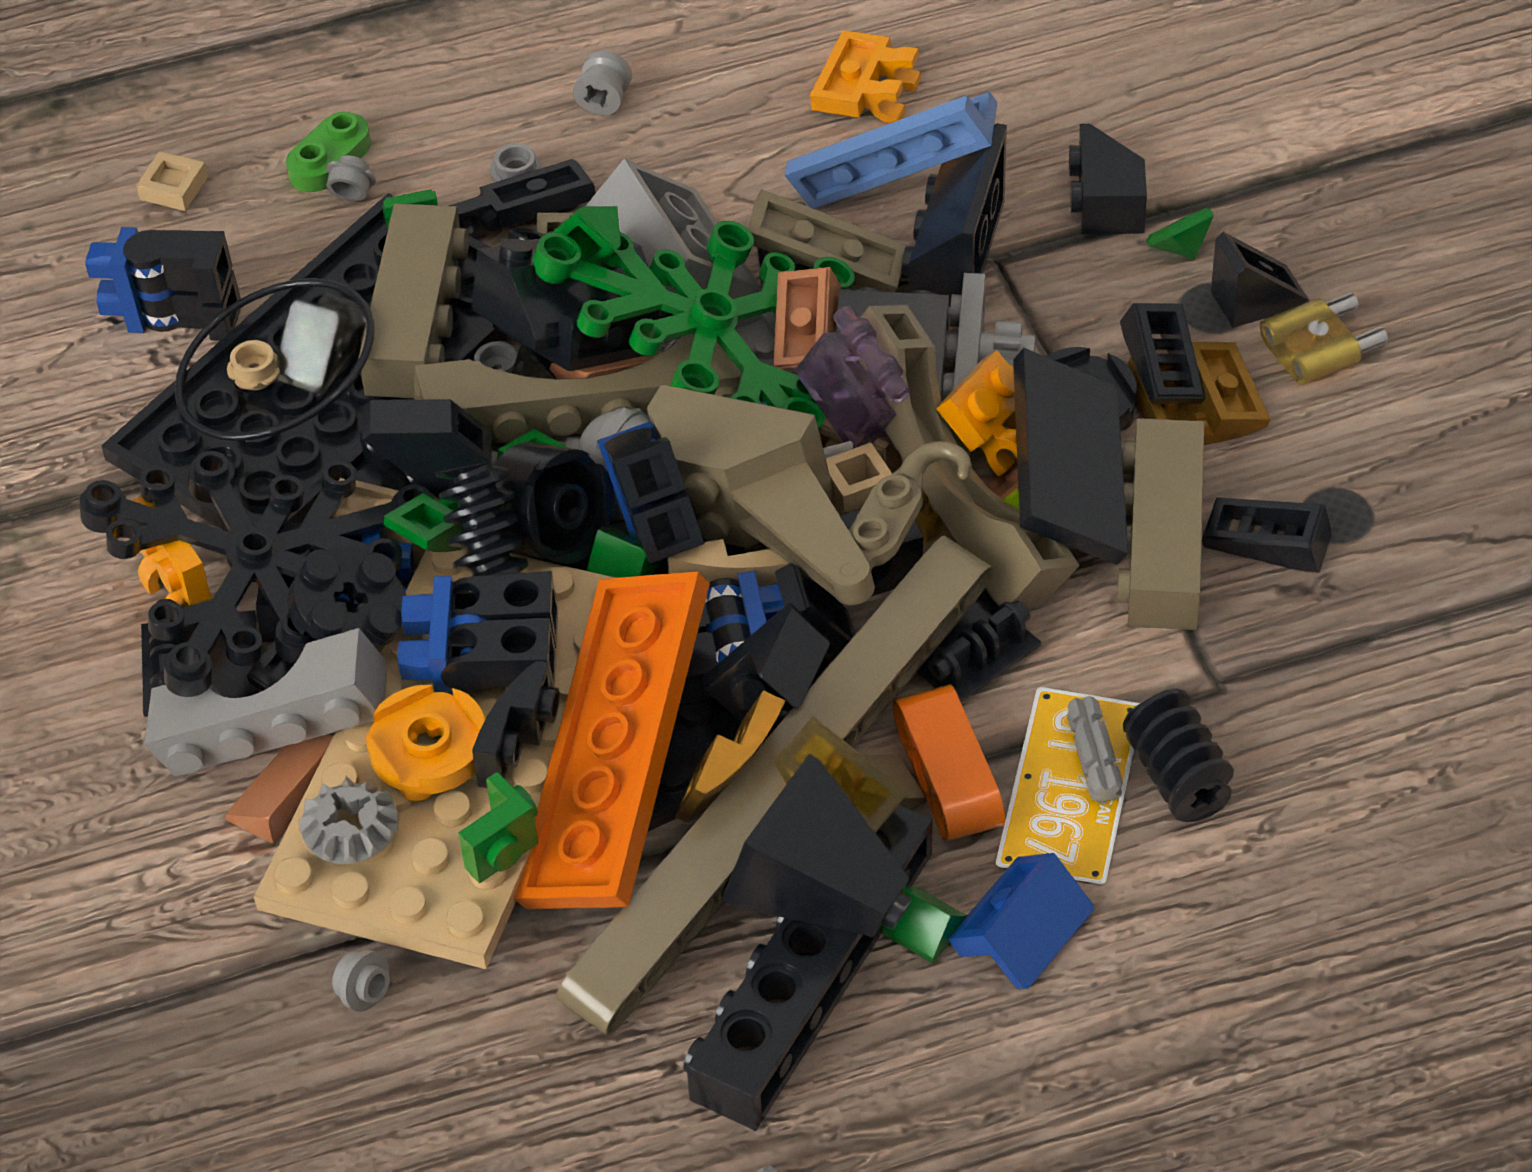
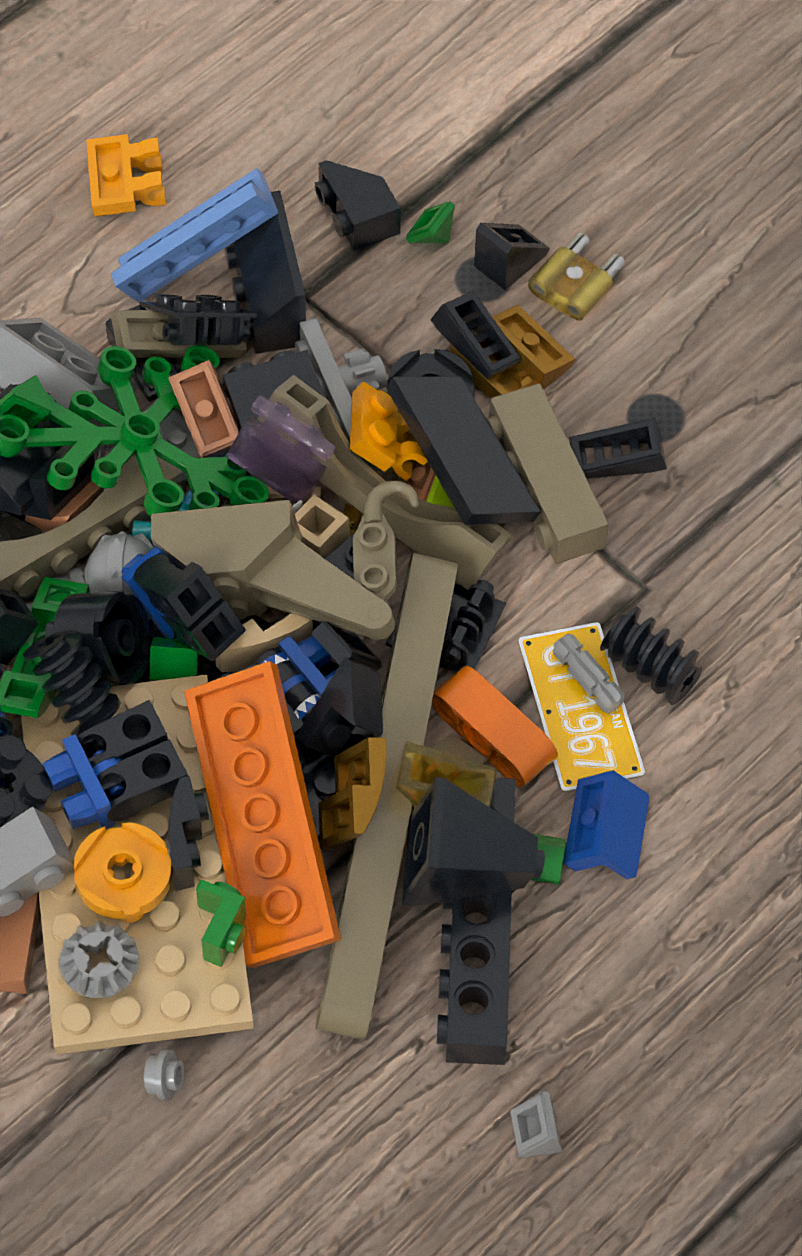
camera: 30 degrees left, 10 degrees up
(829, 223) = (202, 320): none -> black hinge

